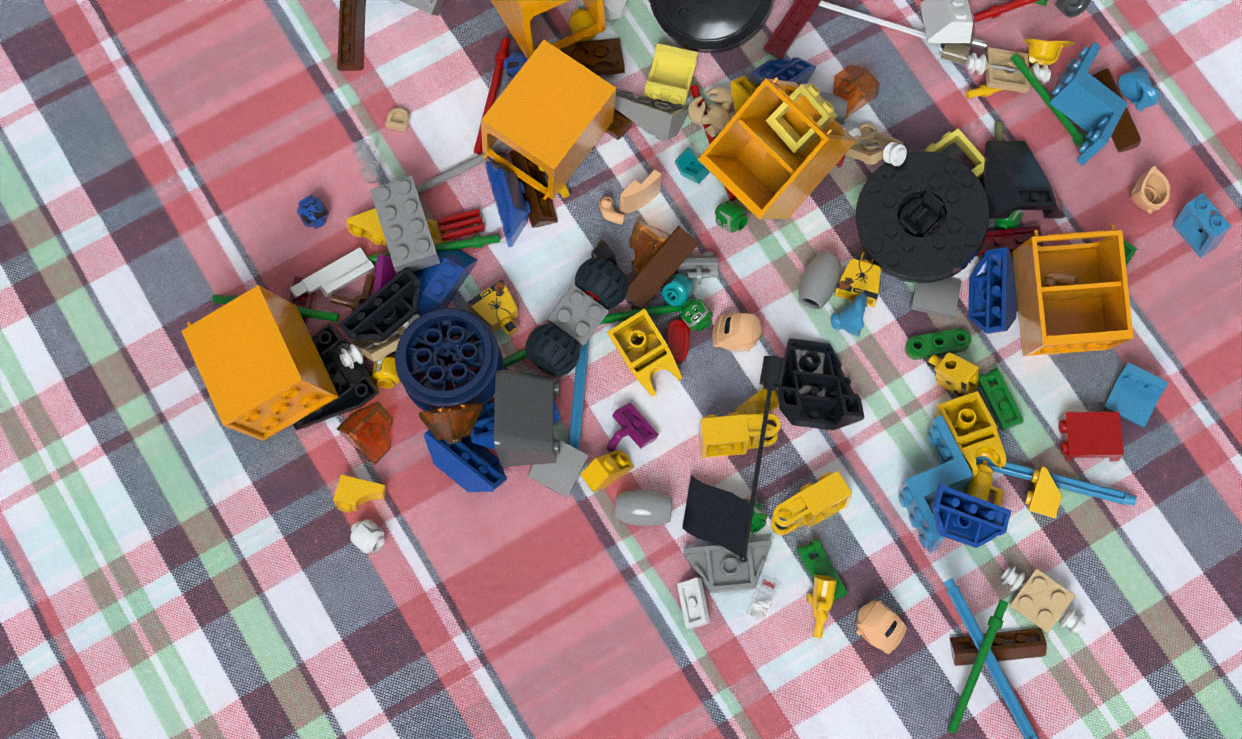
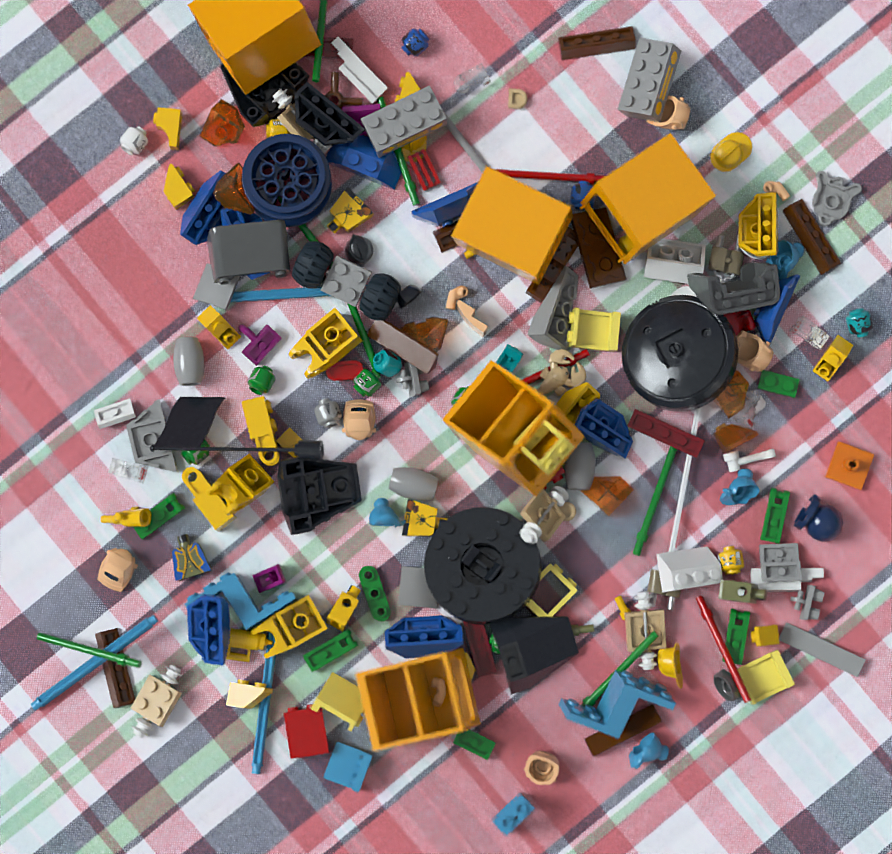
camera: 85 degrees right, 15 degrees up
(433, 496) = (176, 189): none -> yellow slope
(539, 307) = (358, 250): none -> black hat
(677, 430) = (261, 380): none -> green head
(725, 362) = (327, 413): none -> light grey head
(799, 462) = (241, 484): none -> yellow brick
(878, 540) = (189, 559): none -> torso
(902, 62) = (642, 535): none -> green bar
(909, 451) = (269, 578): none -> magenta slope
(1059, 388) = (341, 699): none -> light yellow panel

